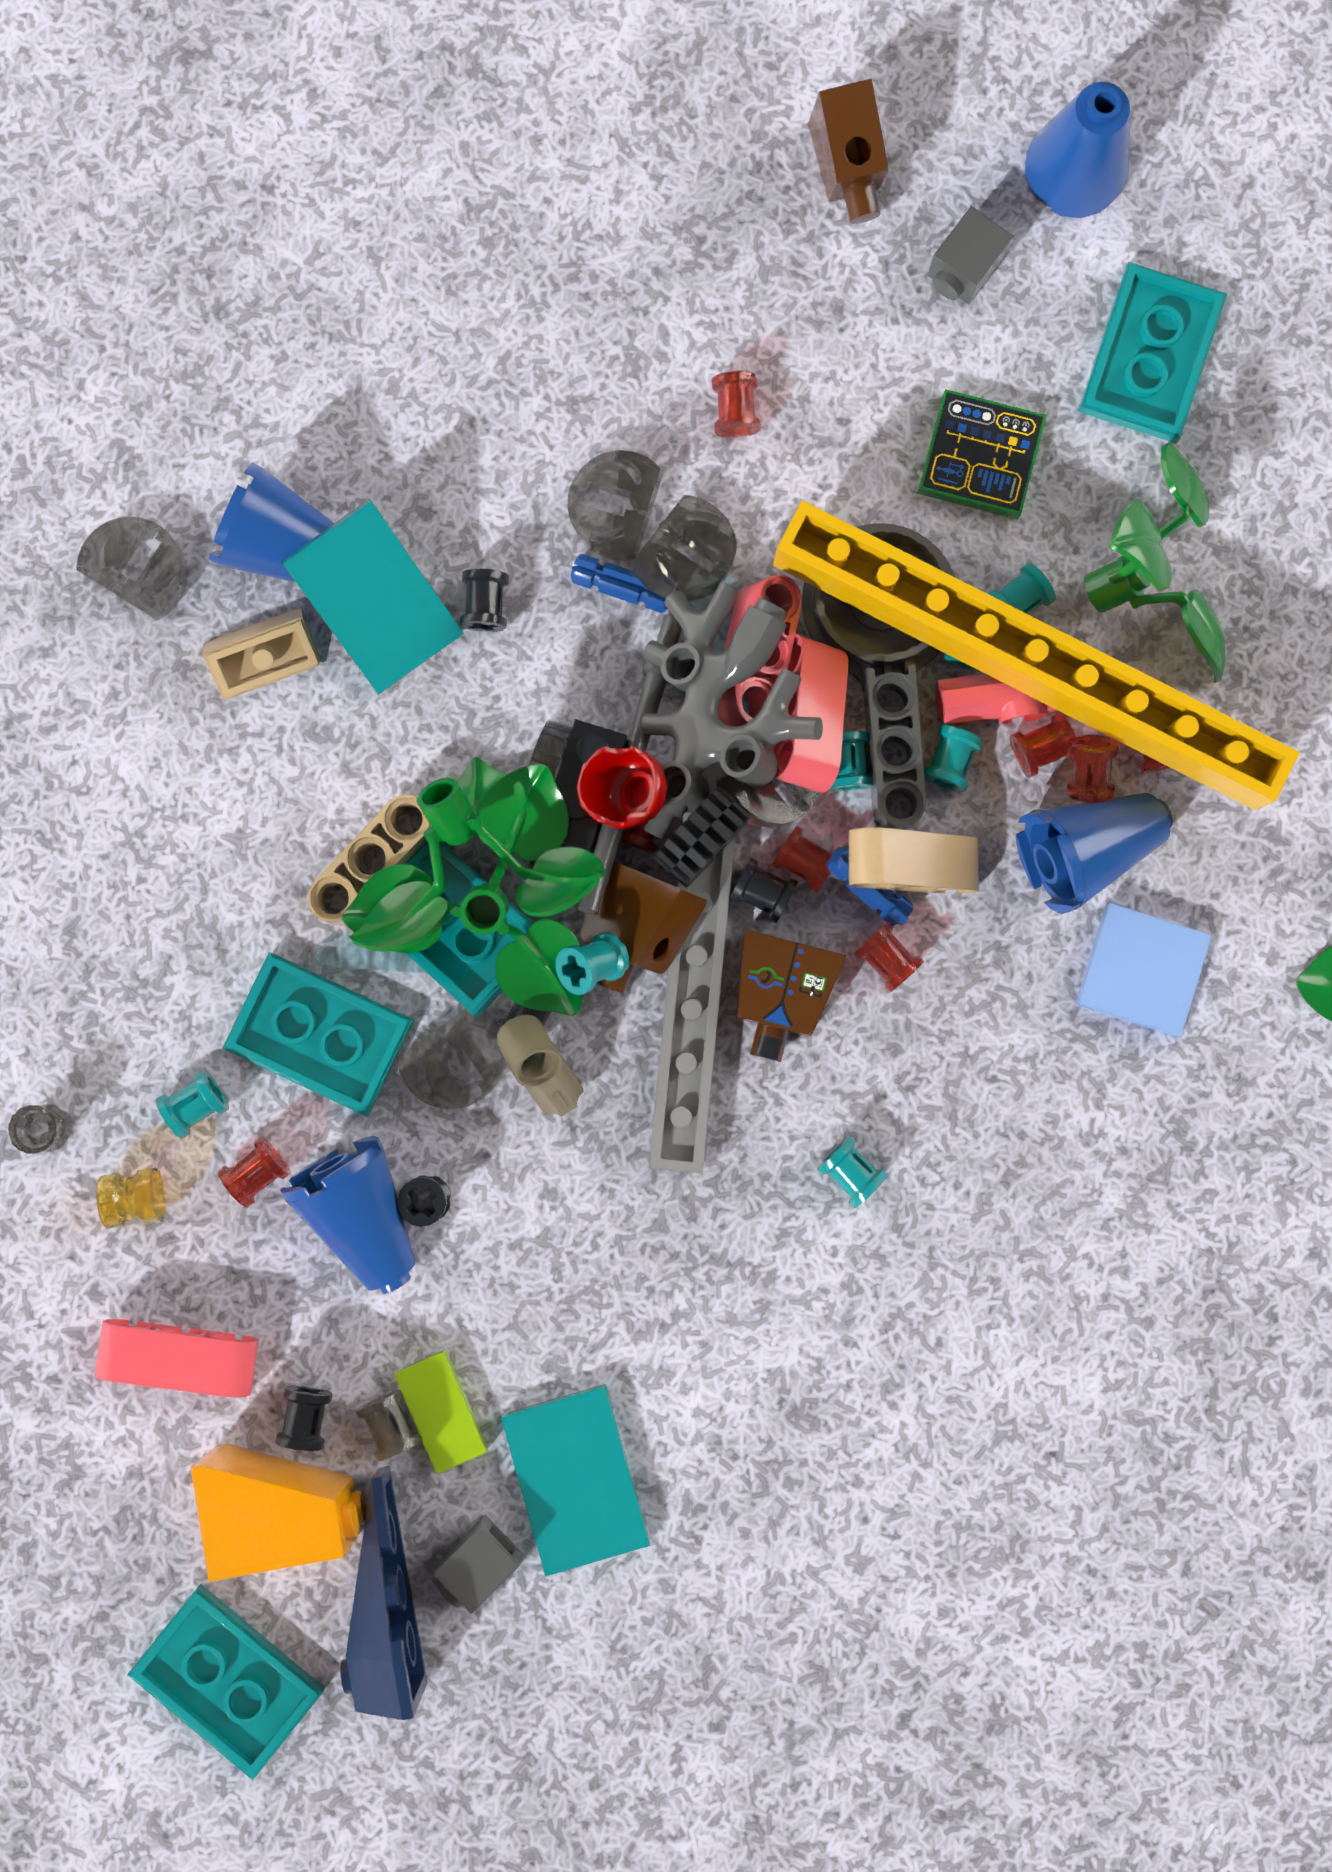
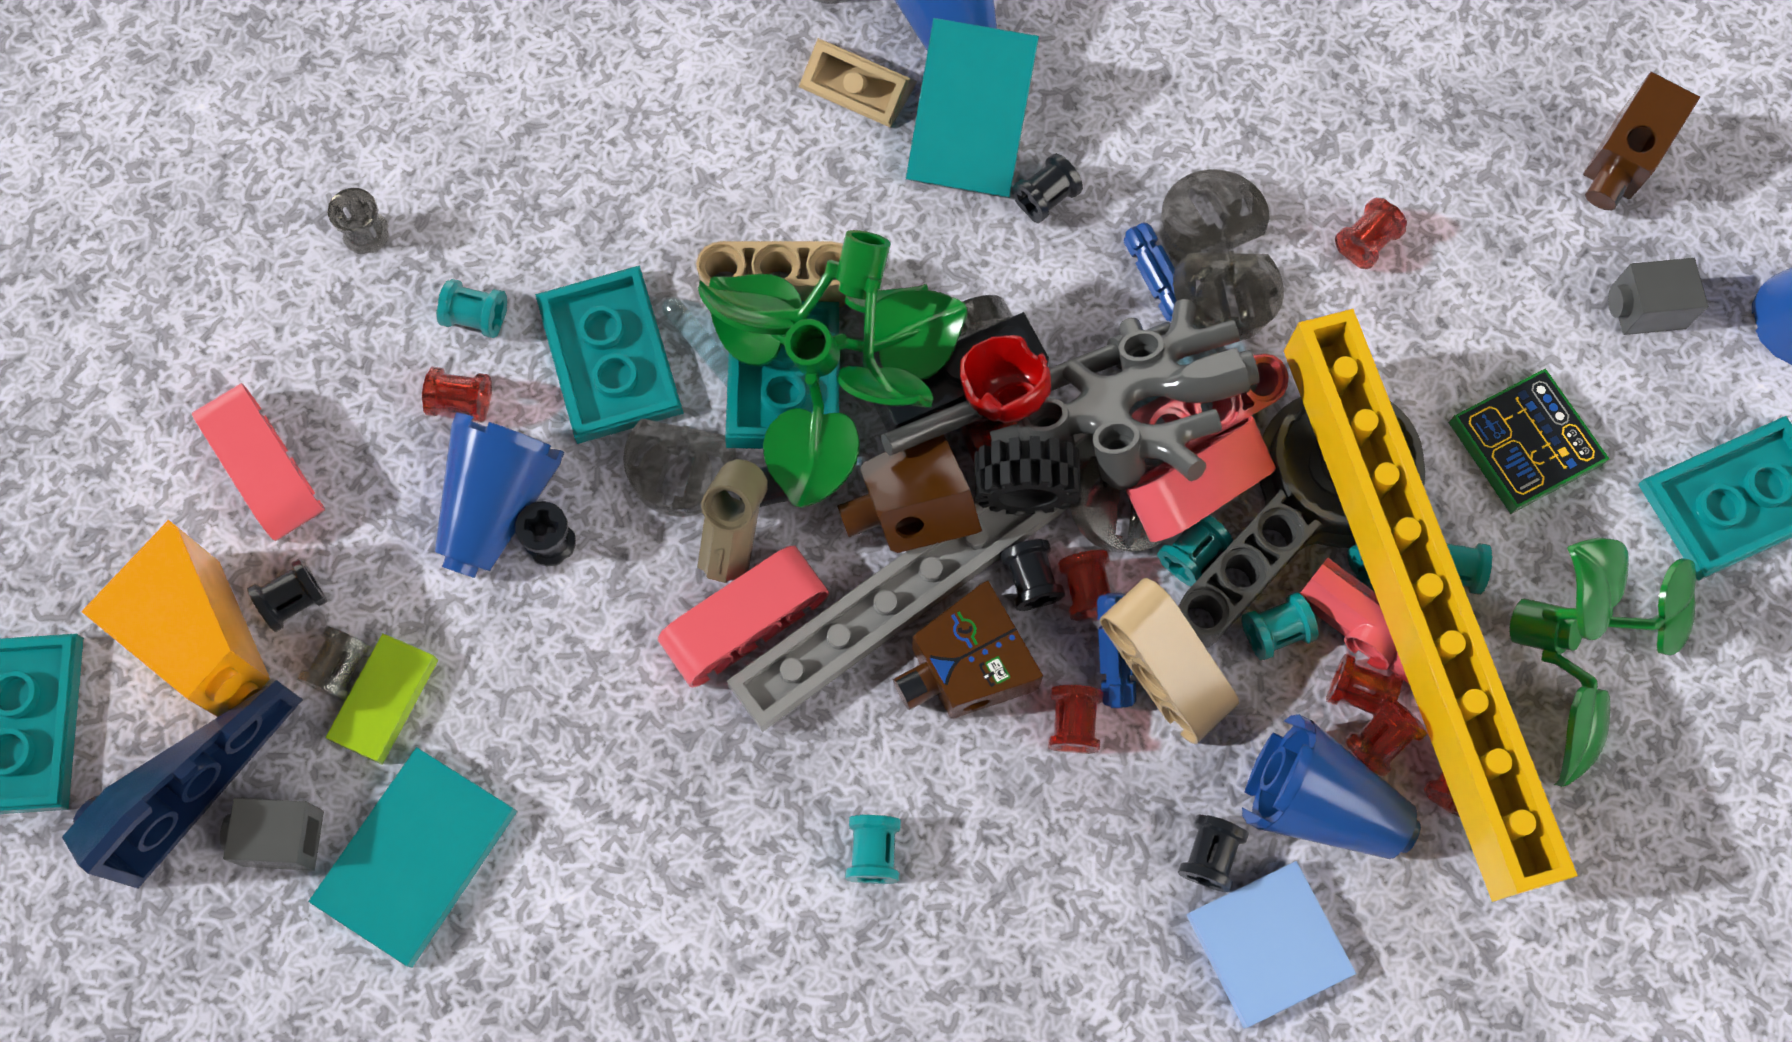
camera: 45 degrees right, 15 degrees down
(130, 1198) = (354, 321): clear yellow wheel -> none
(586, 965) = (848, 478): teal bush -> none
(610, 1114) = (740, 614): none -> coral beam
(1041, 943) = (1211, 832): none -> black bush

